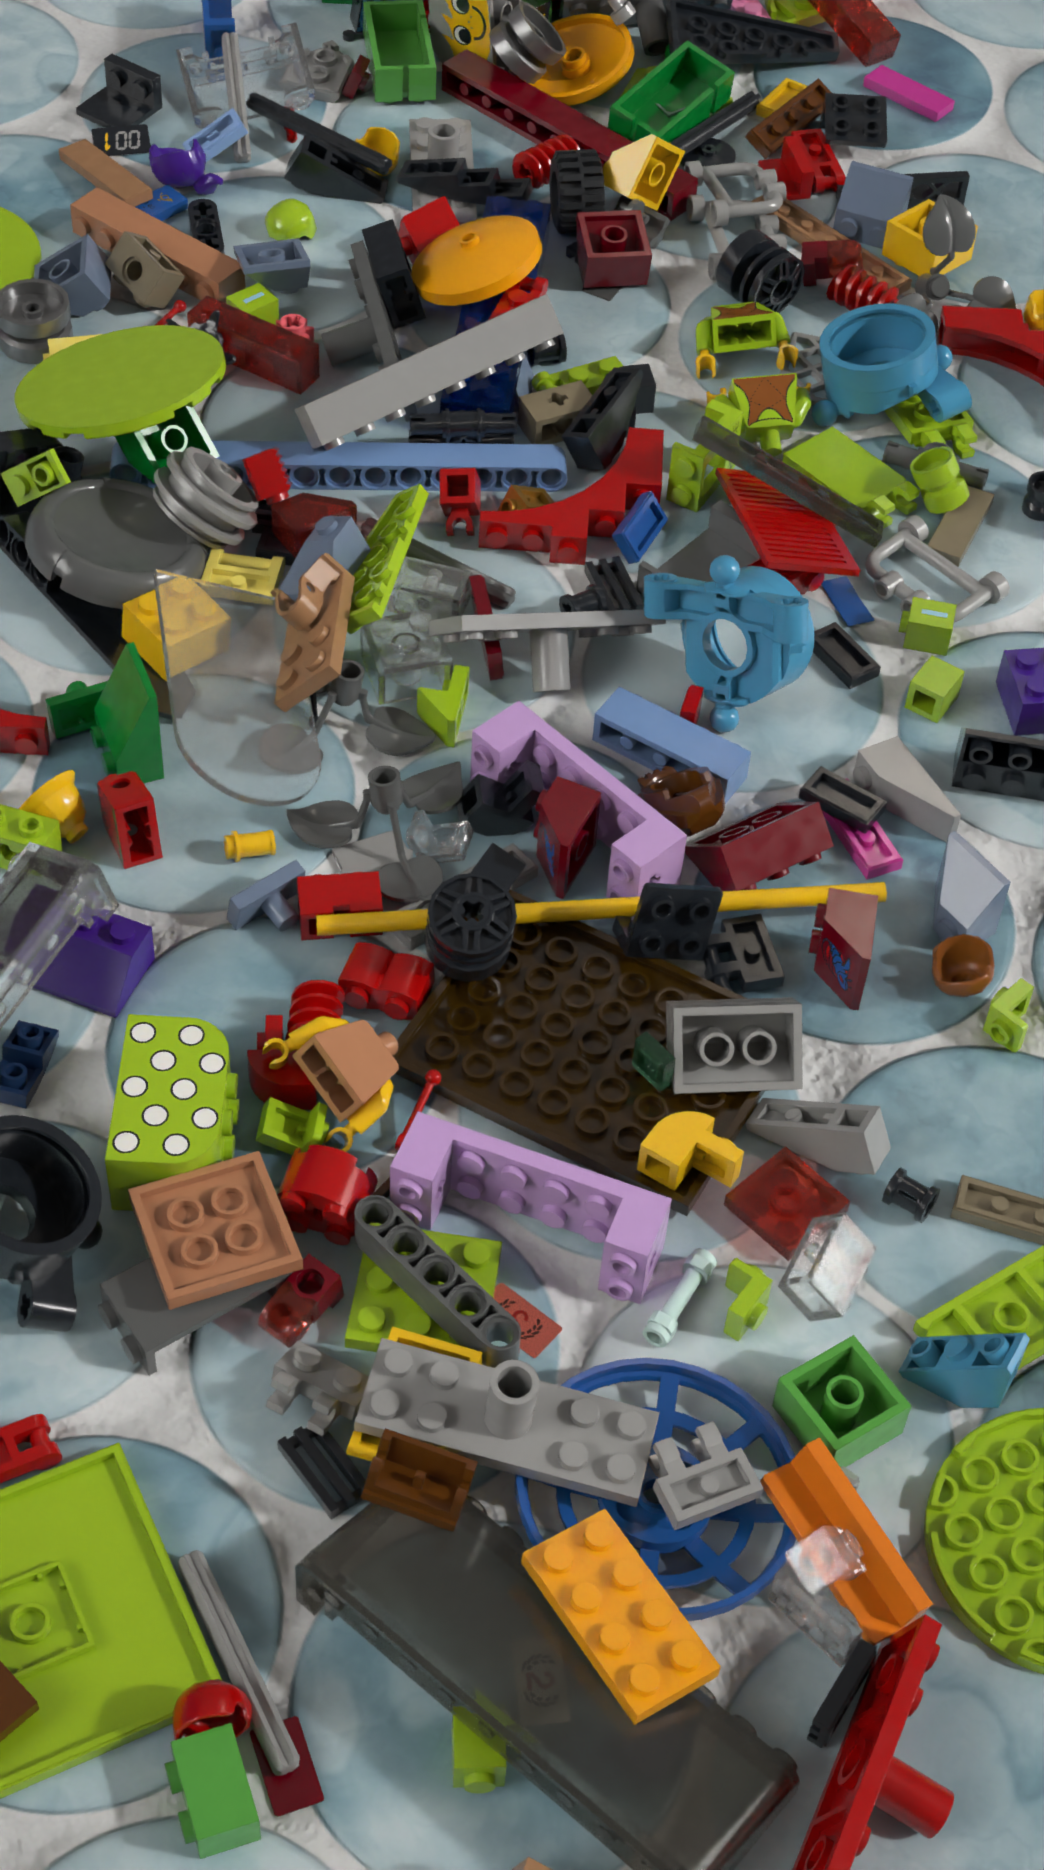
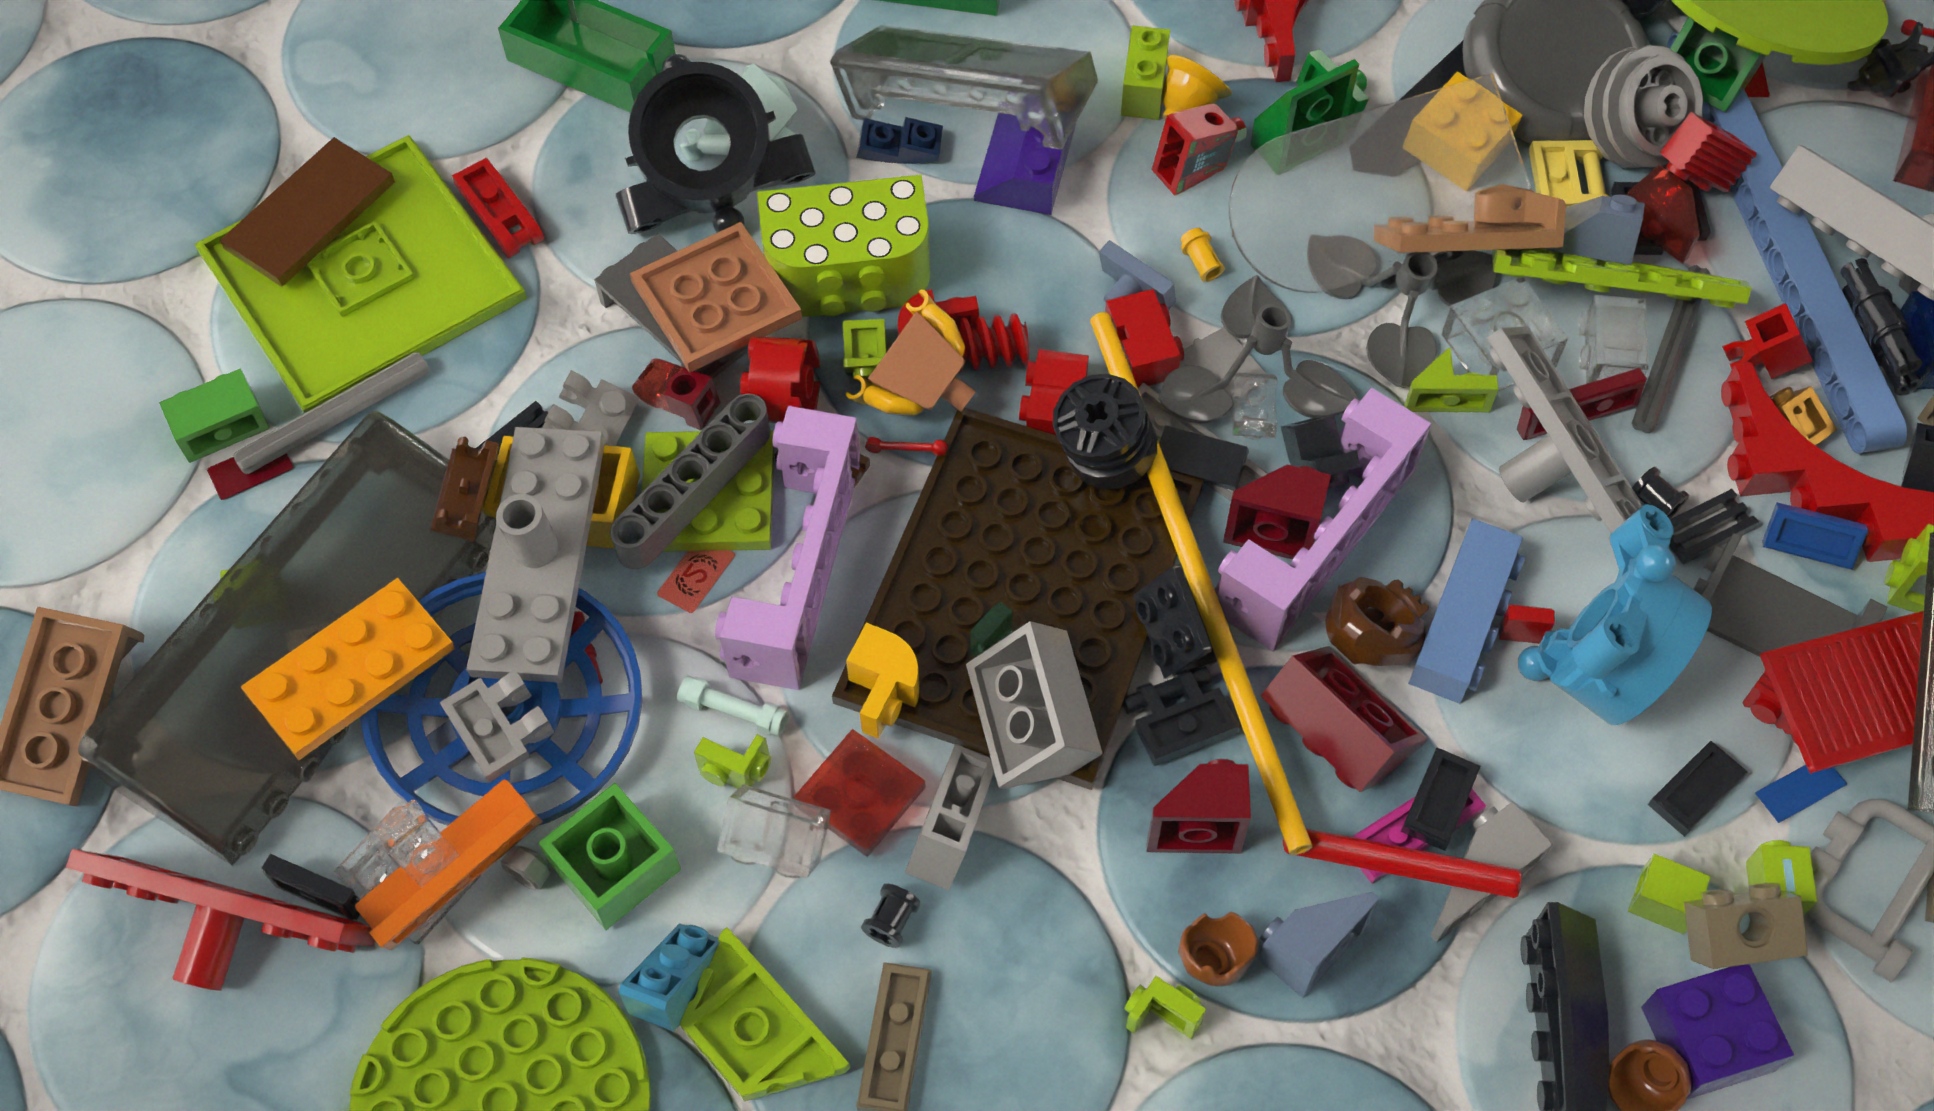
camera: 85 degrees right, 10 degrees up
(210, 1706) = (274, 390): red hair -> none
(908, 816) = (1414, 863): none -> red axle
(980, 643) = (1773, 932): none -> dark tan brick

